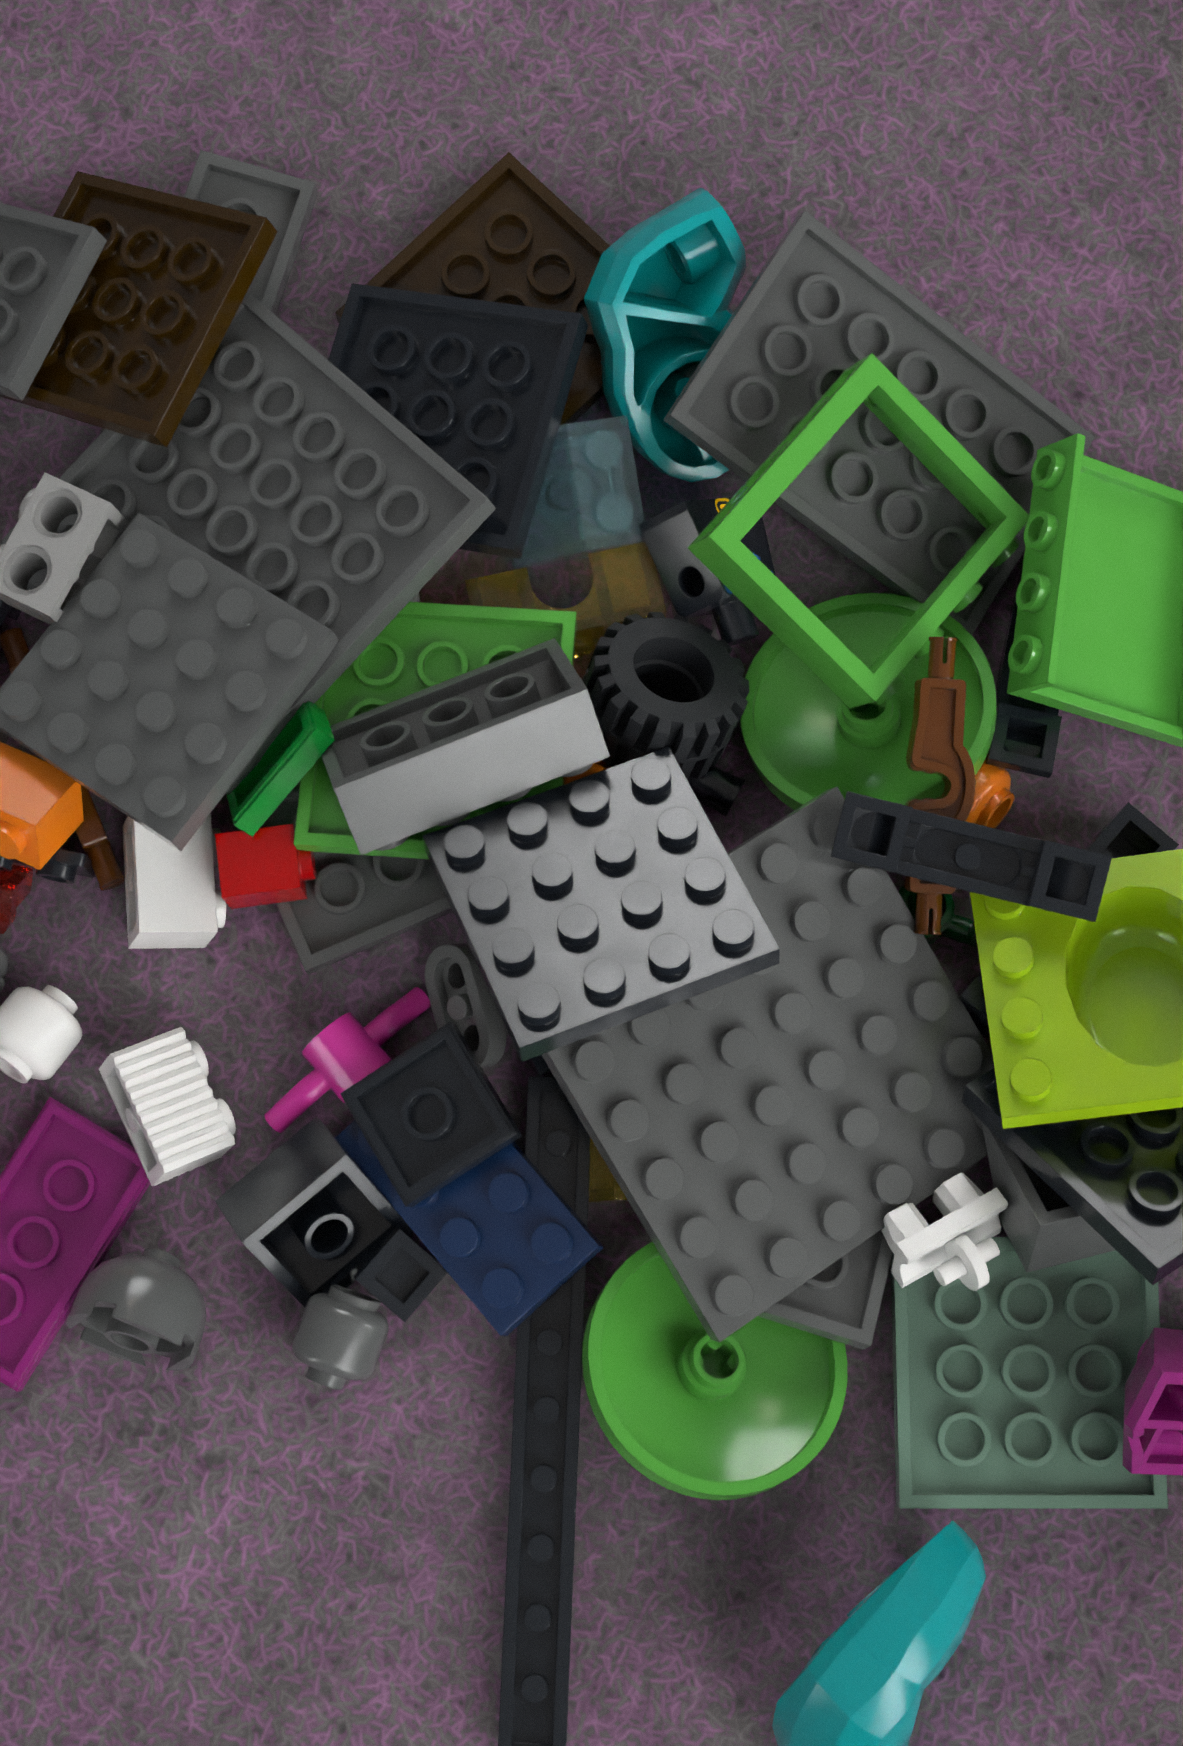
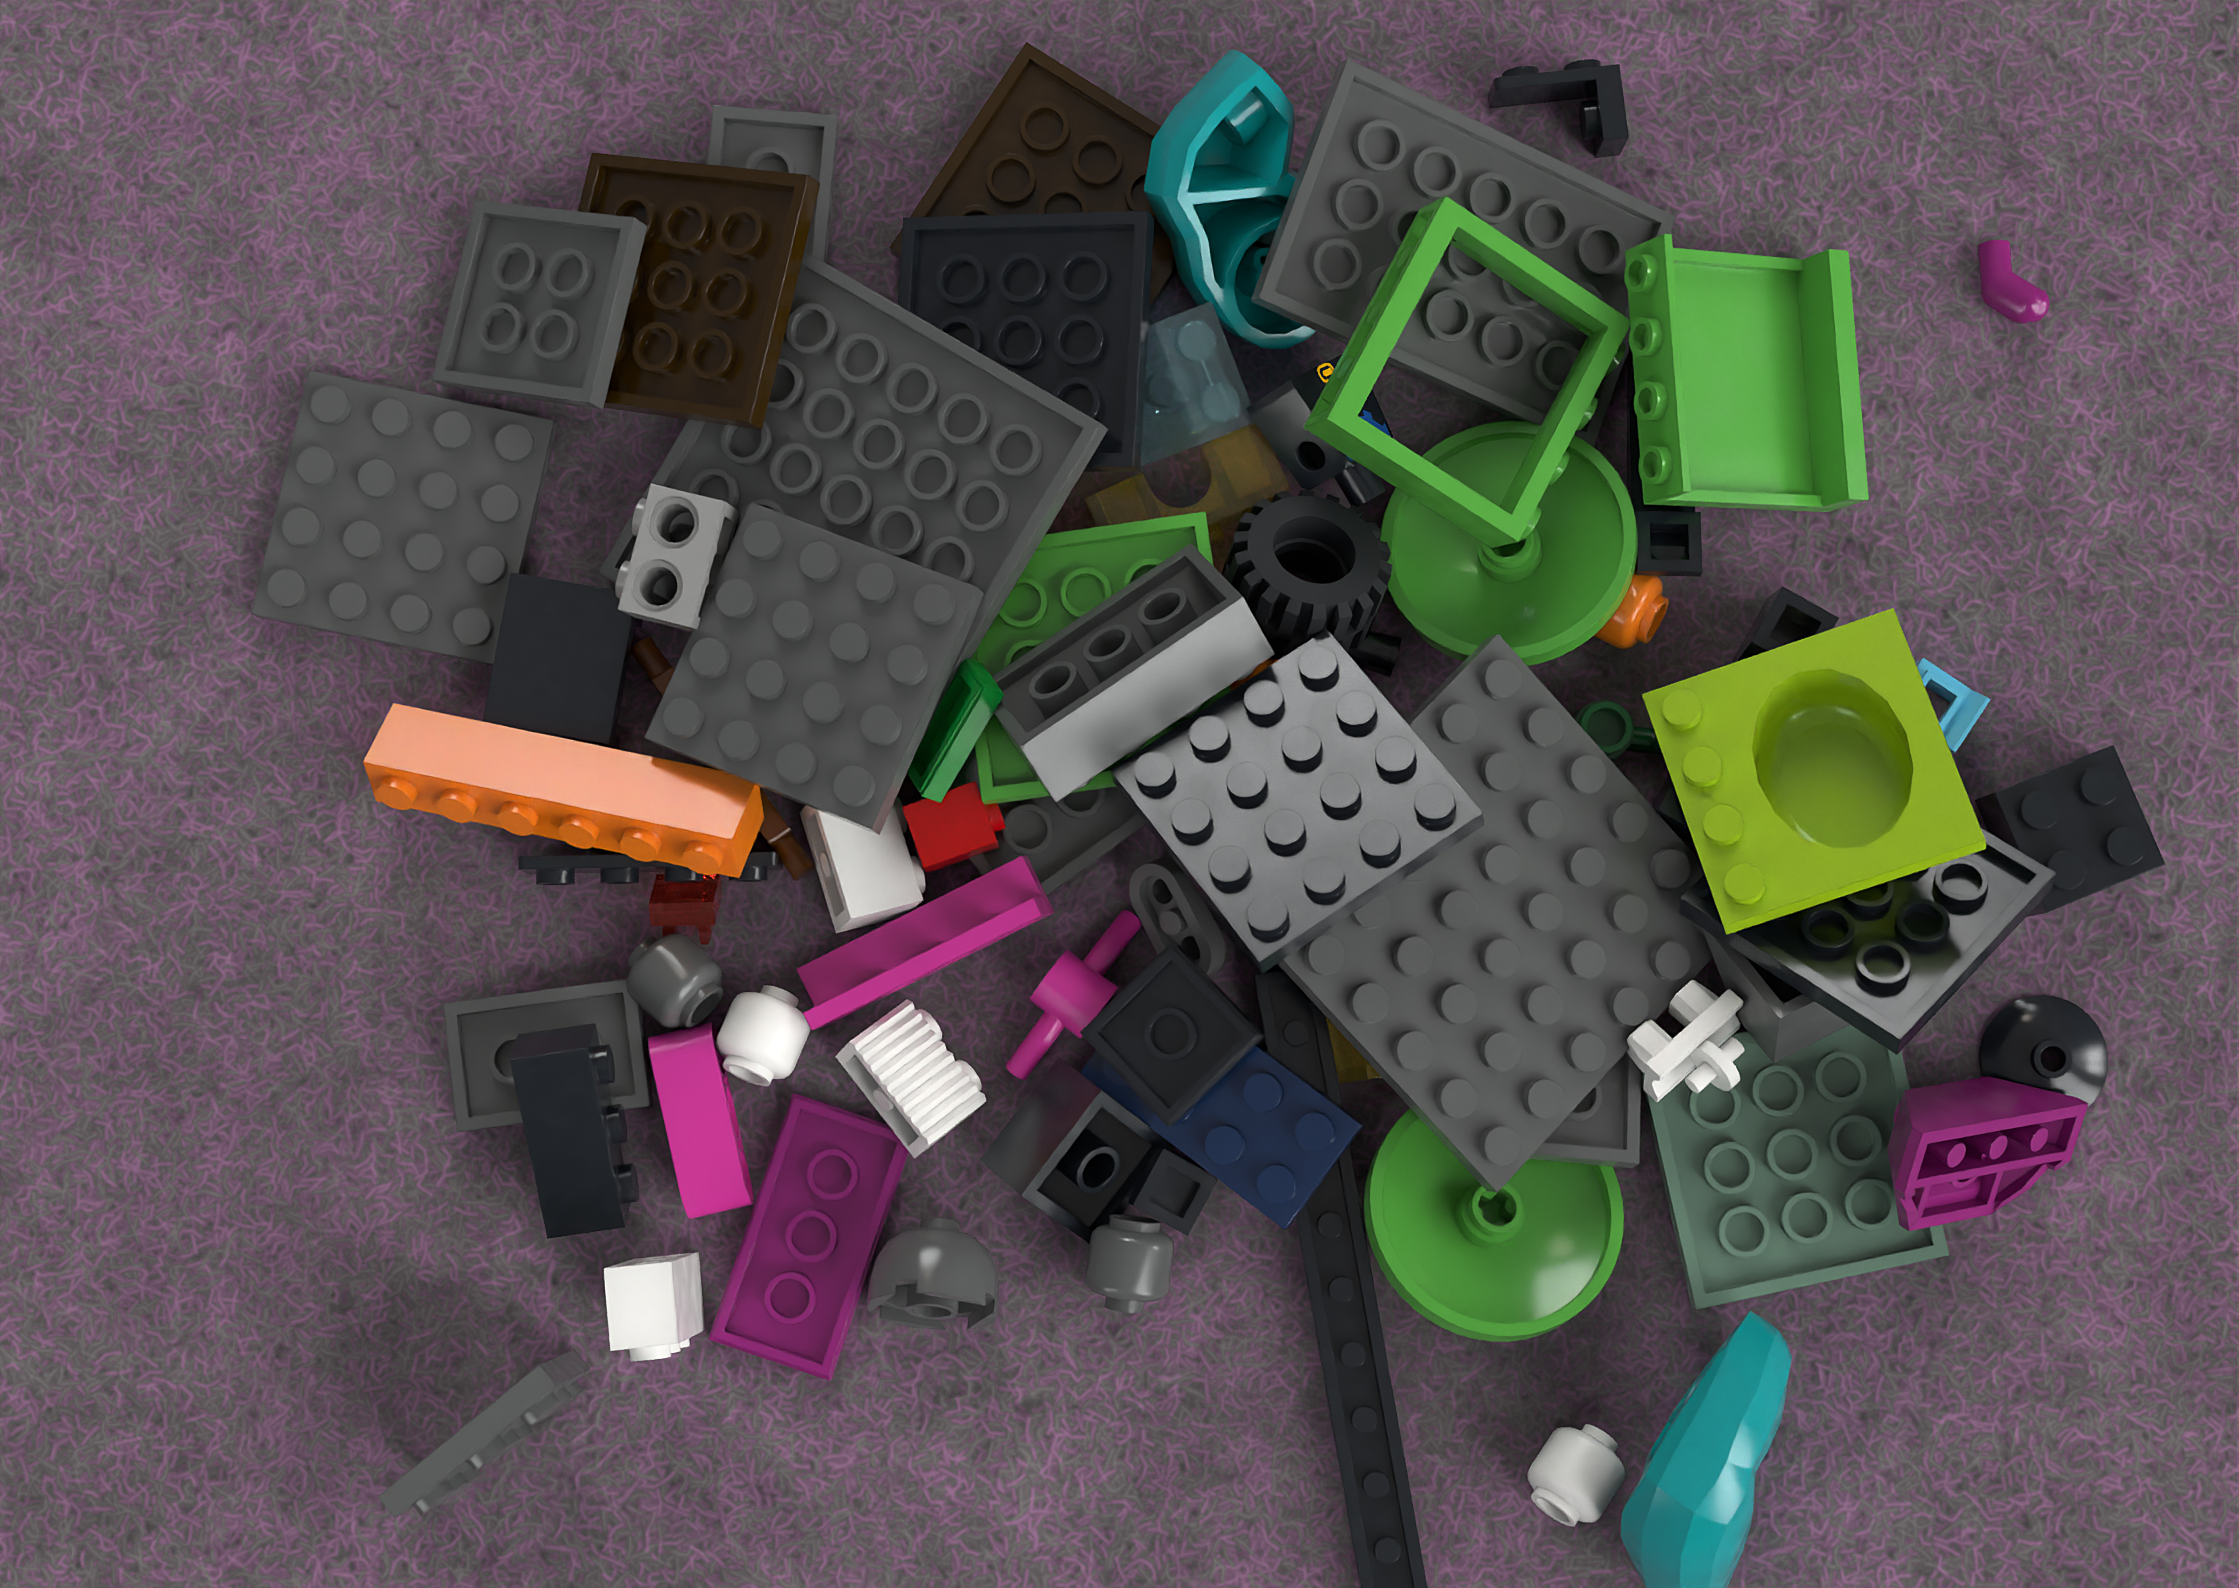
camera: 10 degrees left, 5 degrees up
(211, 975) = (923, 941): none -> dark pink fence
(743, 1652) = (1576, 1474): none -> white head
(939, 749) = (1599, 648): reddish brown piece -> none
(971, 857) = (1643, 678): black slope -> none
(1029, 293) = (1600, 117): none -> black bracket

